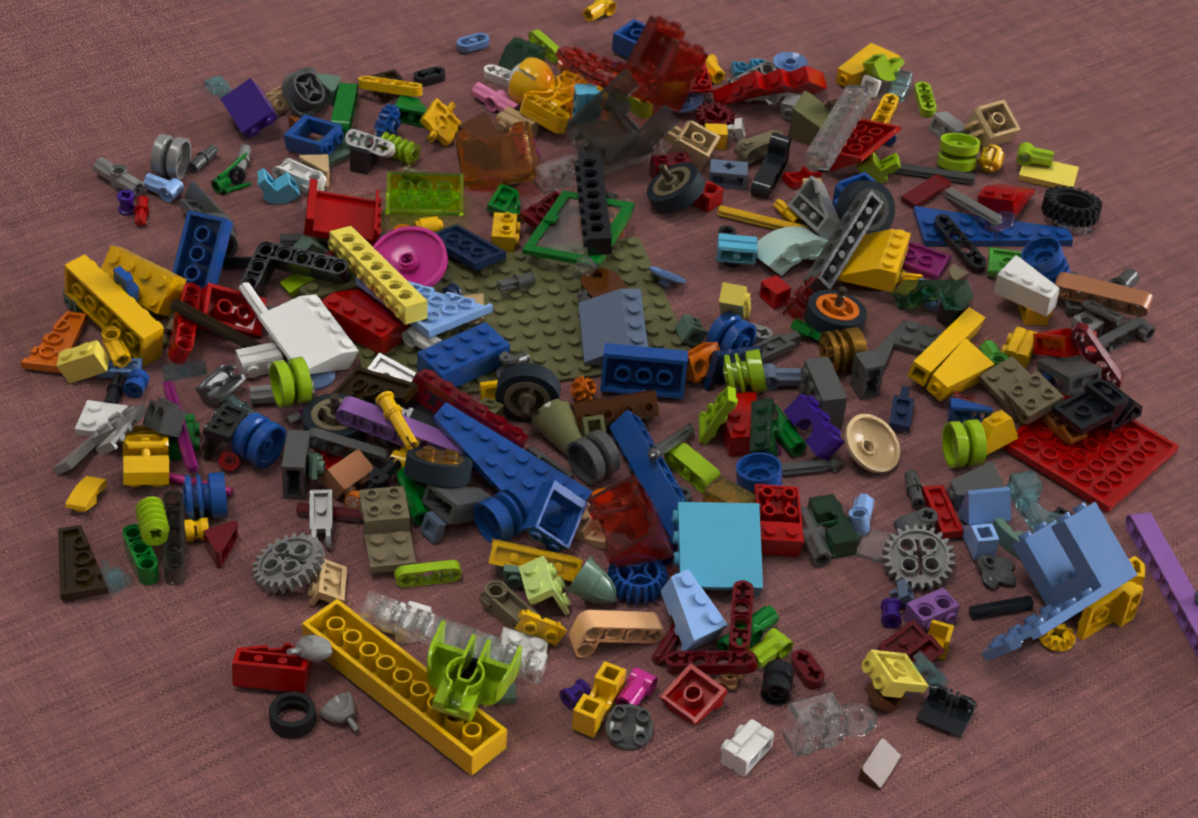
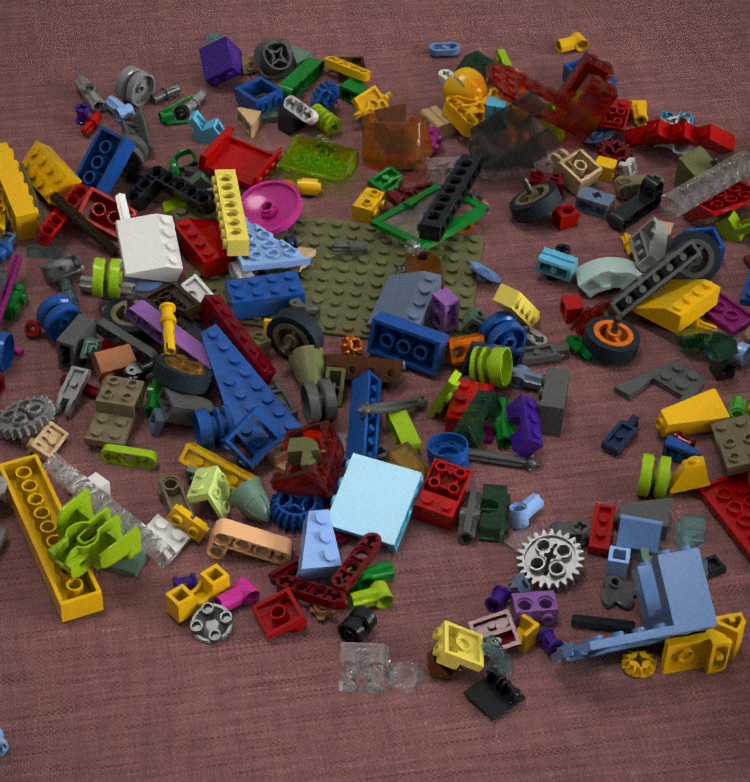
camera: 25 degrees right, 0 degrees up
(125, 280) = (31, 177): blue slope -> none
(222, 427) = (31, 299): pearl dark grey bracket -> none
(256, 359) = (105, 251): white brick -> none
(271, 236) = (174, 168): none -> green piece
(301, 174) = (229, 118): white piece -> none
(429, 76) = (390, 68): black beam -> none
(469, 247) = (327, 209): dark blue plate -> none
(493, 99) = (429, 95): bright pink piece -> none
(623, 515) = (303, 452): none -> olive brick
(661, 325) = (445, 310): none -> medium lavender brick
(746, 747) = (297, 669): white brick -> none
(755, 219) = (595, 244): yellow axle -> none
(789, 61) = (716, 119): medium blue dish -> none
(794, 179) = (666, 217): red slope -> none
(811, 668) = (391, 623): dark red beam -> none
(842, 347) = (595, 370): pearl gold wheel -> none
(867, 374) = (604, 396): dark grey brick -> none
(872, 443) = (577, 447): tan dish -> none
(879, 764) = (404, 719): slope -> none
(914, 489) = (586, 510): dark grey pin -> none
(926, 364) = (723, 380): yellow brick -> none
(960, 634) = (548, 640): none -> dark purple bush

